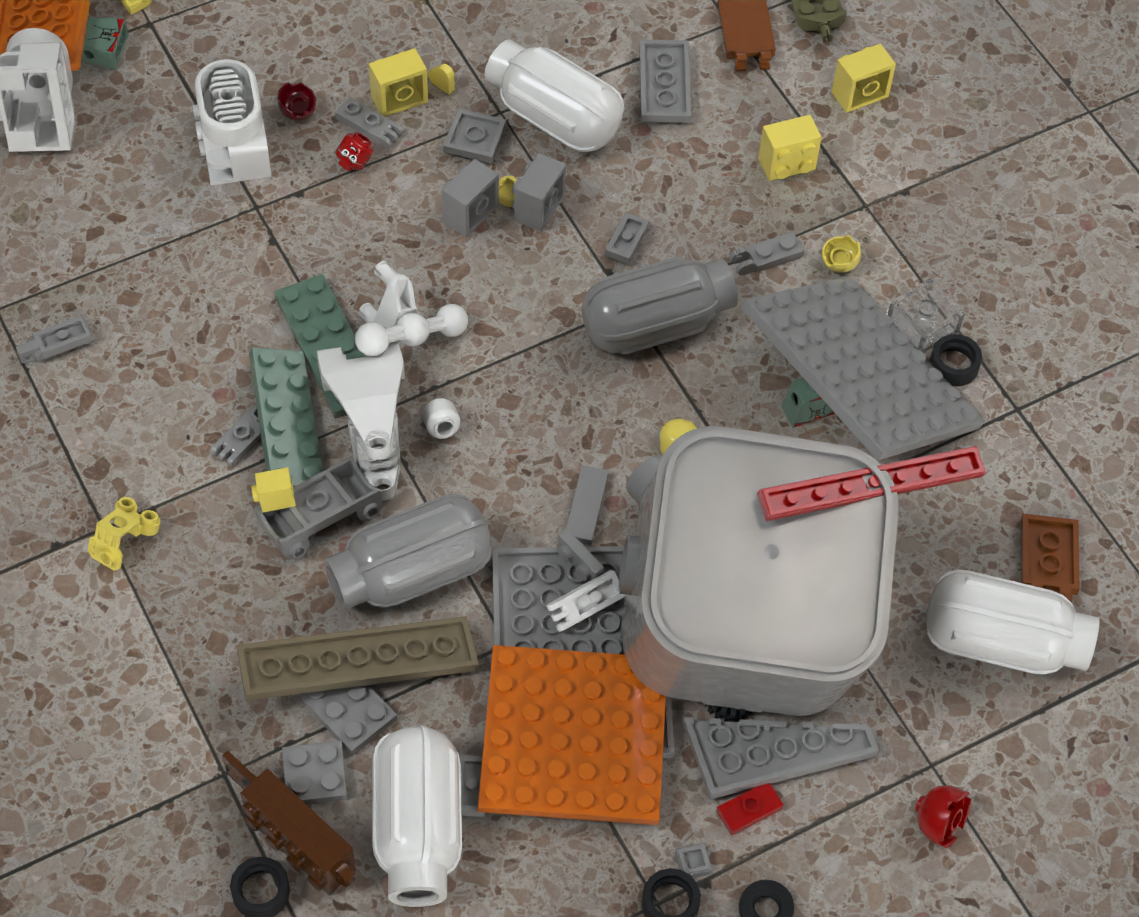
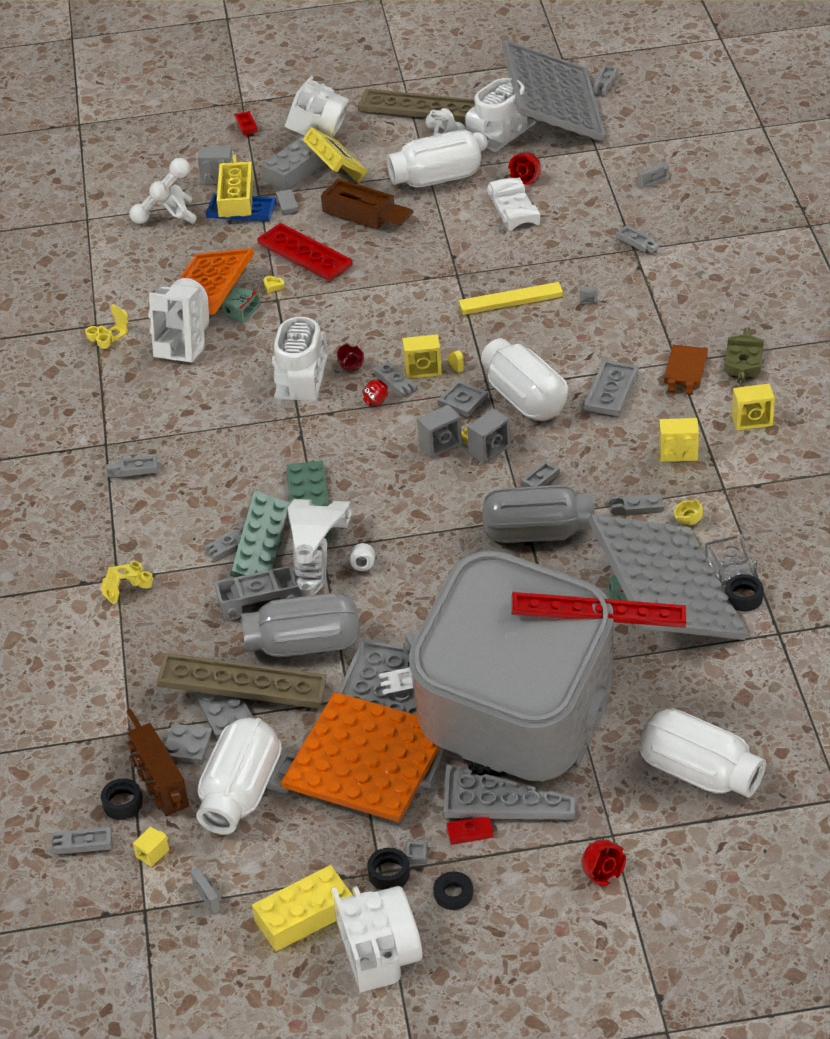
camera: 25 degrees right, 15 degrees down
(274, 490) = (229, 571): light yellow brick -> none
(398, 317) = (358, 490): white connector -> none
(1050, 553) = (760, 724): dark orange tile -> none

